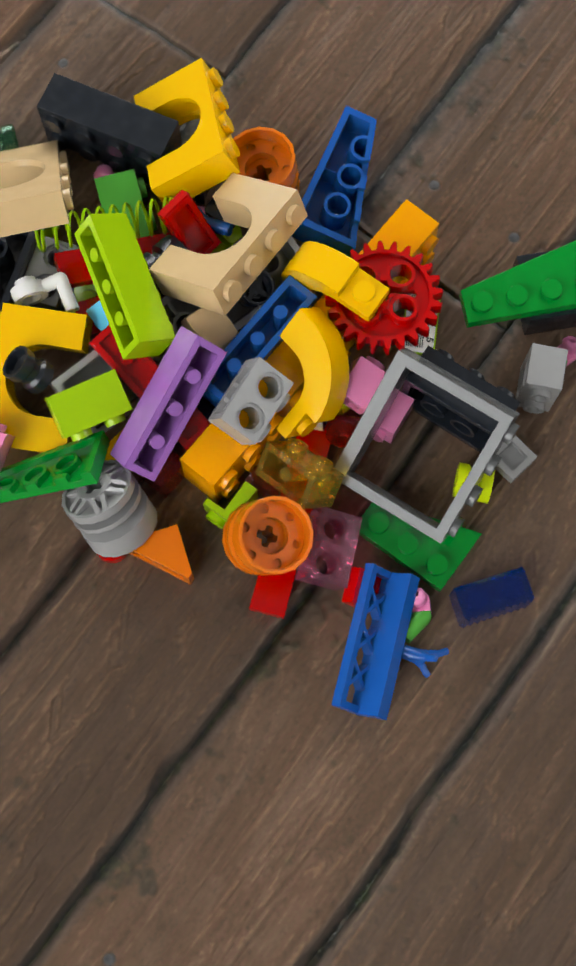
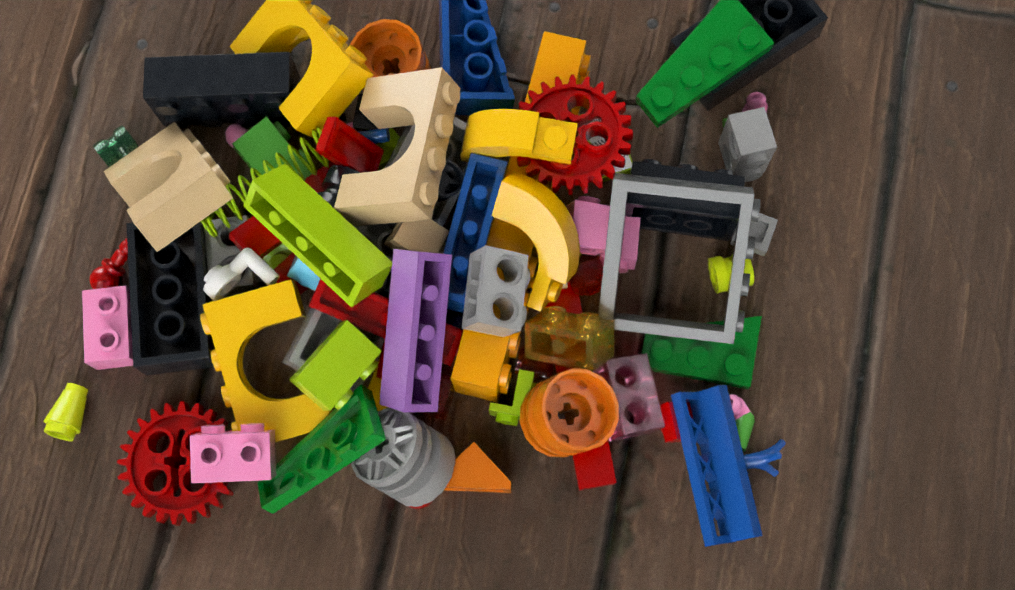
camera: 20 degrees left, 0 degrees up
(32, 372) = (258, 358): black wheel -> none
(491, 597) = (801, 372): clear blue brick -> none

